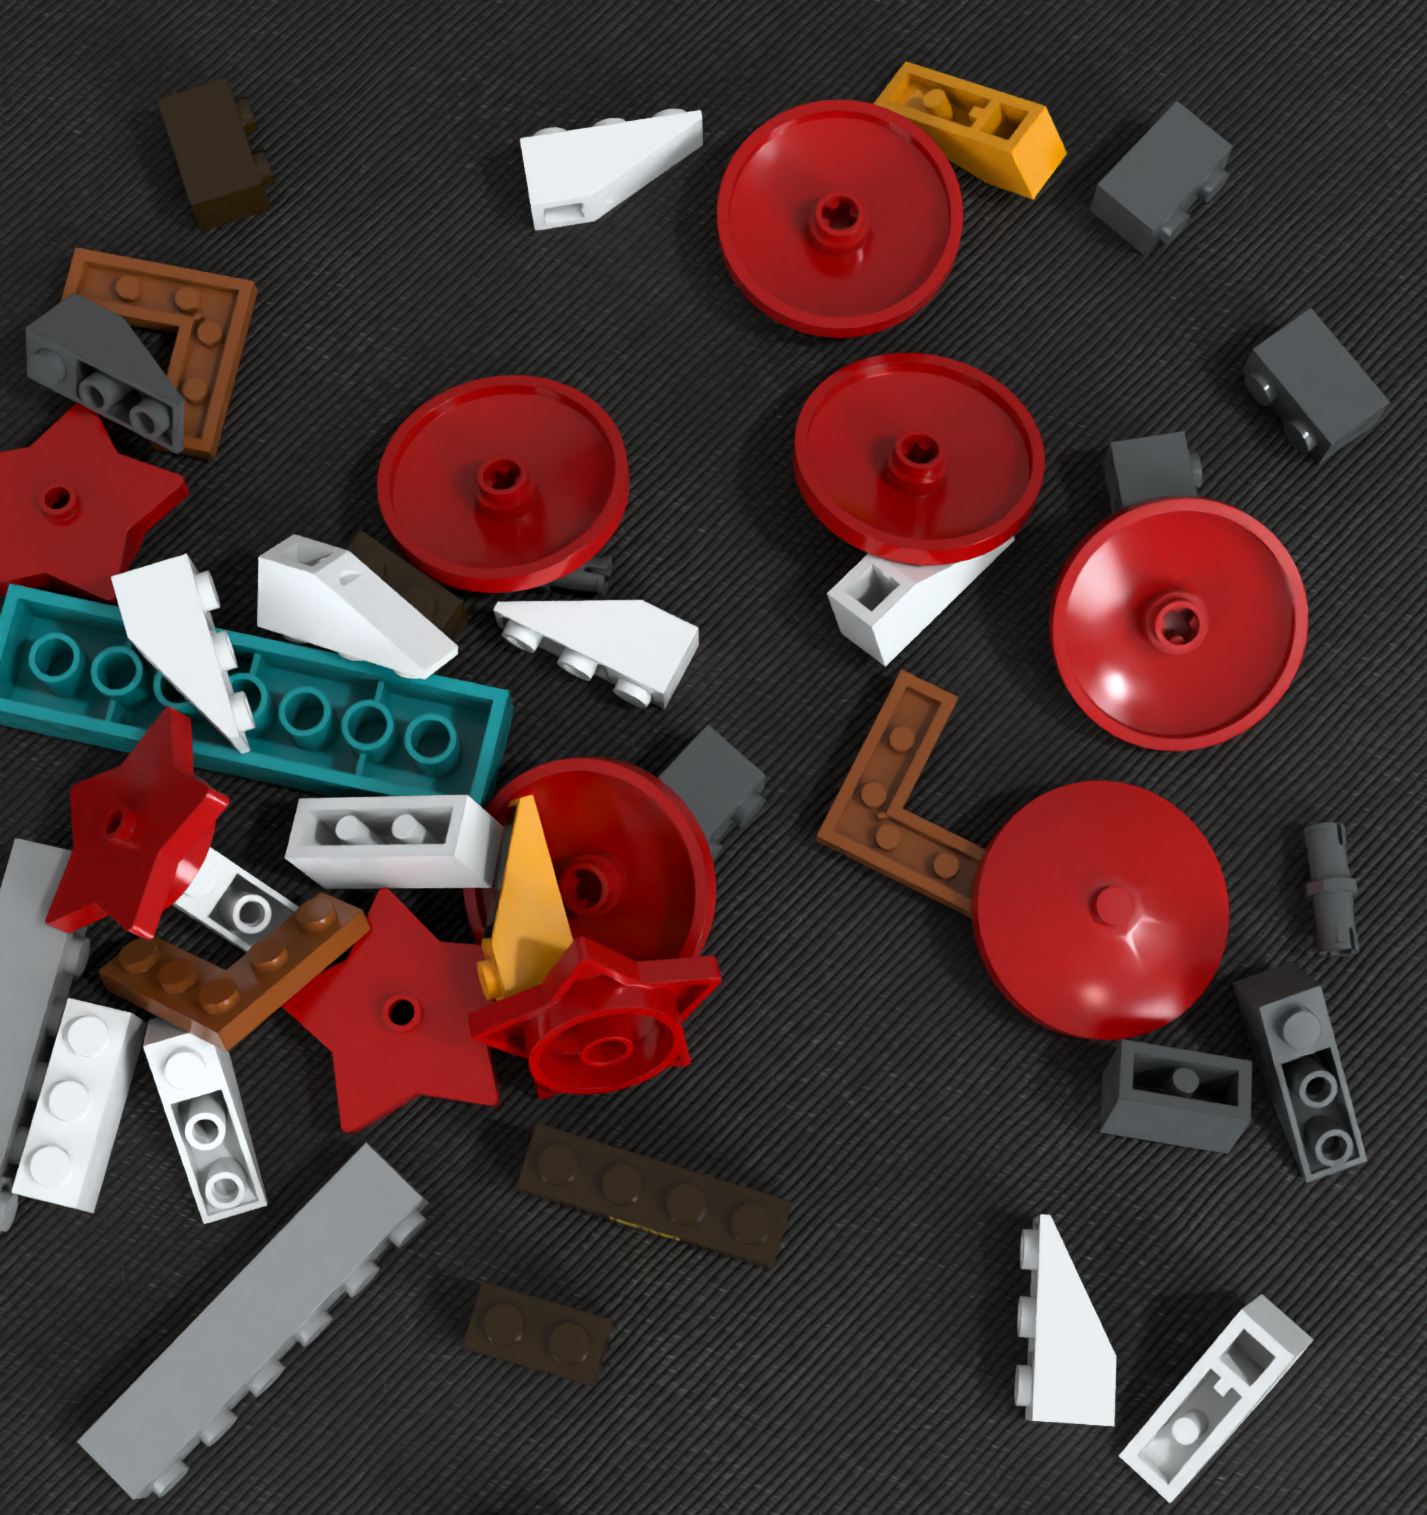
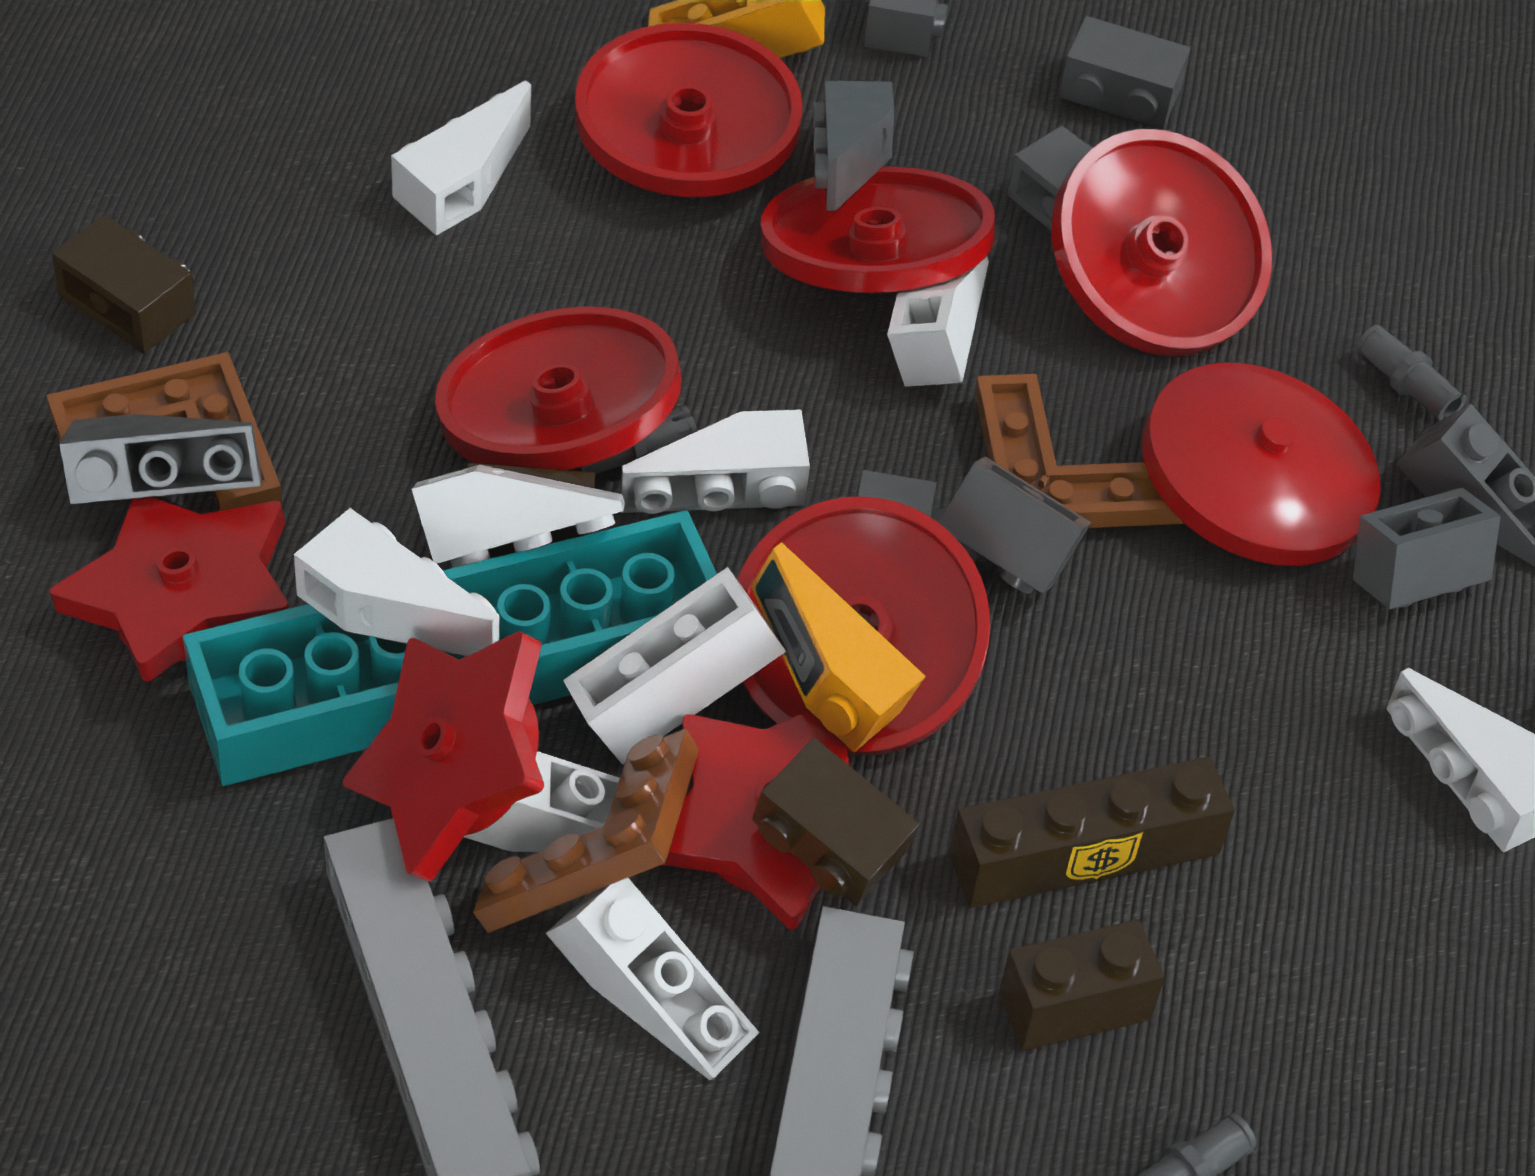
camera: 40 degrees left, 25 degrees down
(80, 1105) = (537, 1029): white brick -> none
(412, 1081) = (833, 822): none -> dark brown brick
(599, 1019) = (956, 695): red plate -> none
(805, 857) = (1013, 526): none -> dark grey brick
(975, 337) = (851, 136): none -> dark grey slope

